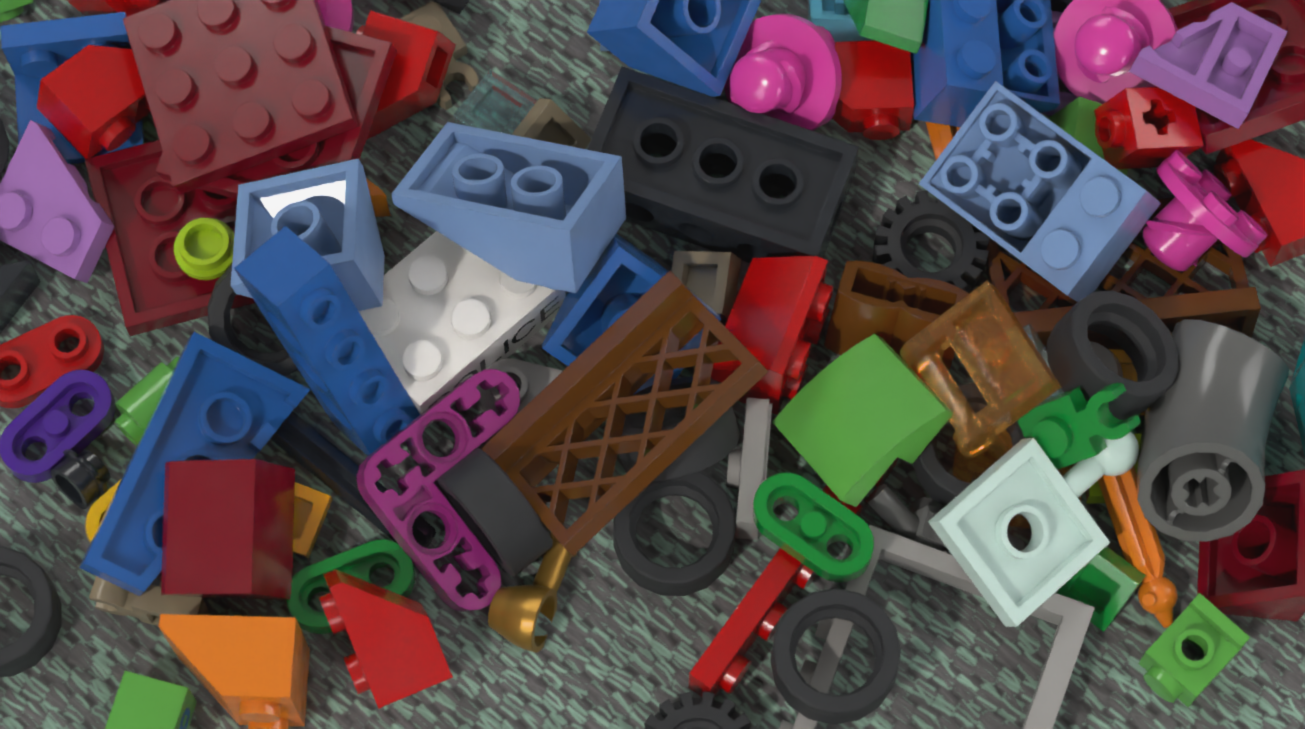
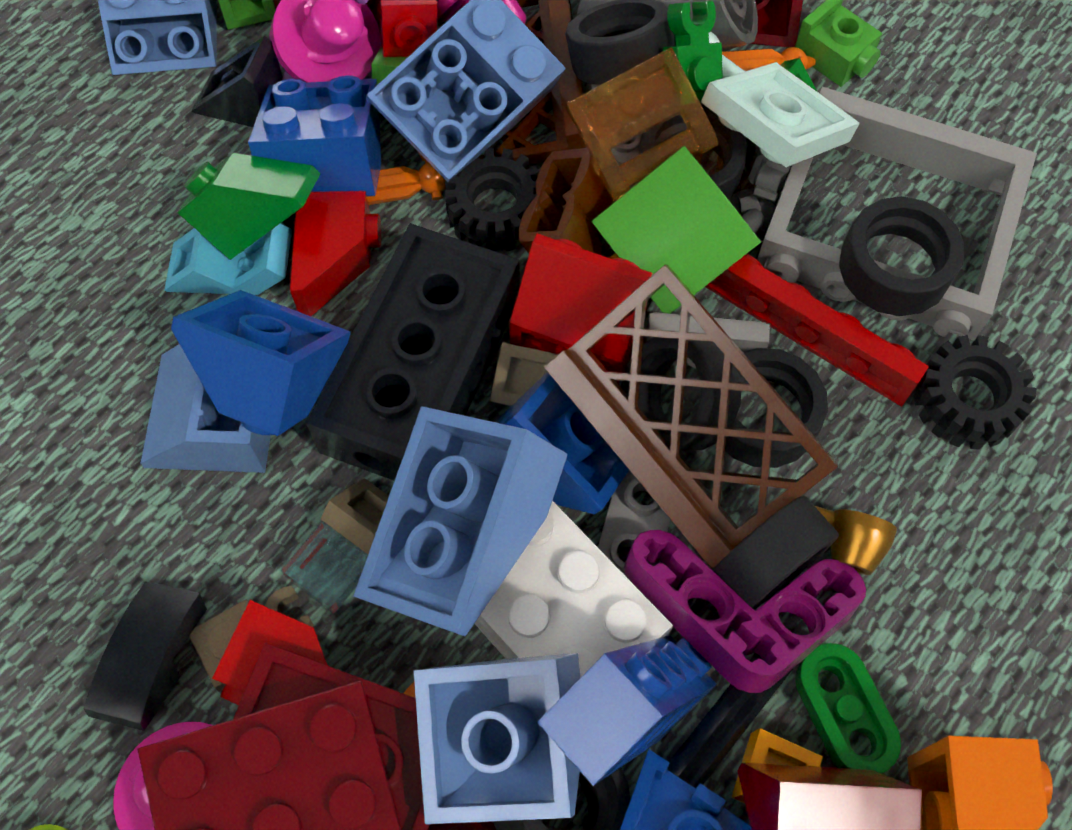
camera: 90 degrees left, 5 degrees down
(390, 638) = (911, 661): red slope -> none
(787, 71) = (324, 278): dark pink plate -> none
(816, 526) = (778, 273): green plate -> none

